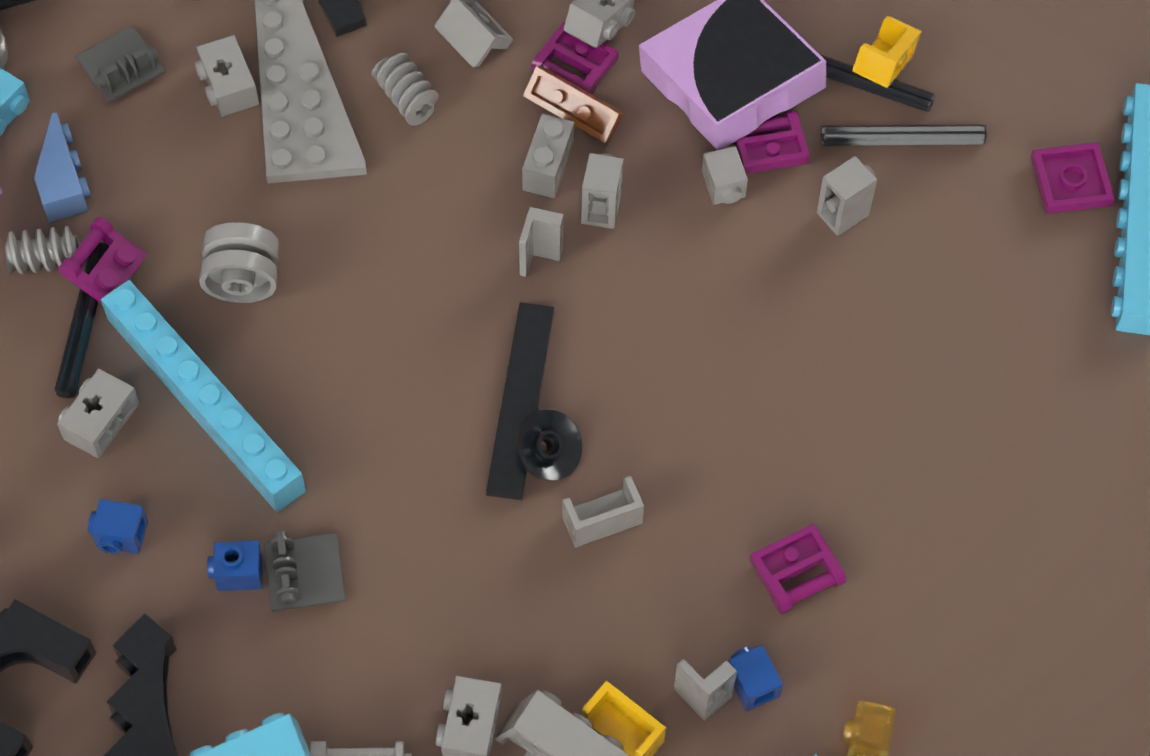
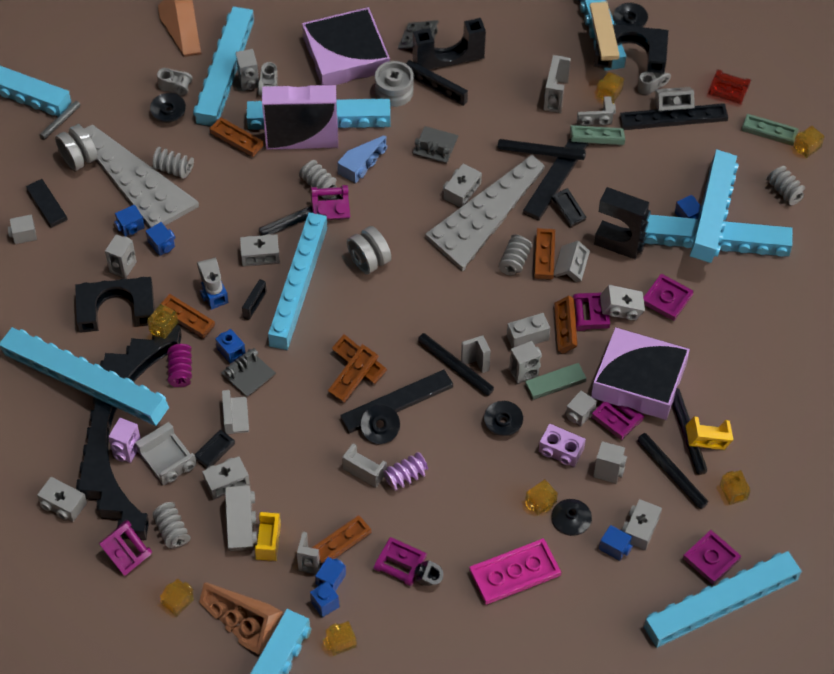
camera: 55 degrees right, 5 degrees down
(96, 507) = (210, 275): none -> light grey piece
(123, 632) = (162, 321): none -> clear yellow brick
(125, 595) = (189, 316): none -> dark orange plate
(182, 478) = (254, 299): none -> black tile
(210, 663) = (179, 365): none -> magenta piece
(362, 637) = (235, 413): none -> light grey panel
(401, 708) = (214, 449): none -> black tile
(410, 401) = (347, 348): none -> dark orange plate
(433, 52) = (545, 253): none -> dark orange plate
(434, 424) = (353, 373): none -> dark orange plate
(520, 283) = (455, 364): none -> black axle
(651, 179) = (555, 381): none -> sand green tile
(656, 461) = (406, 470): none -> lavender piece
(665, 267) = (503, 411): none -> black dish
(703, 621) = (342, 539): none -> dark orange plate
(762, 232) = (564, 441): none -> lavender brick
(791, 712) = (324, 599): none -> blue brick
(831, 318) = (541, 497): none -> clear yellow brick
(852, 541) = (428, 573): none -> black plate
(878, 315) = (570, 524): none -> black dish
(923, 429) = (515, 571): none -> dark pink plate
(964, 224) = (647, 515): none -> light grey brick
(970, 275) = (615, 543): none -> blue brick
(986, 80) = (735, 487): none -> clear yellow brick

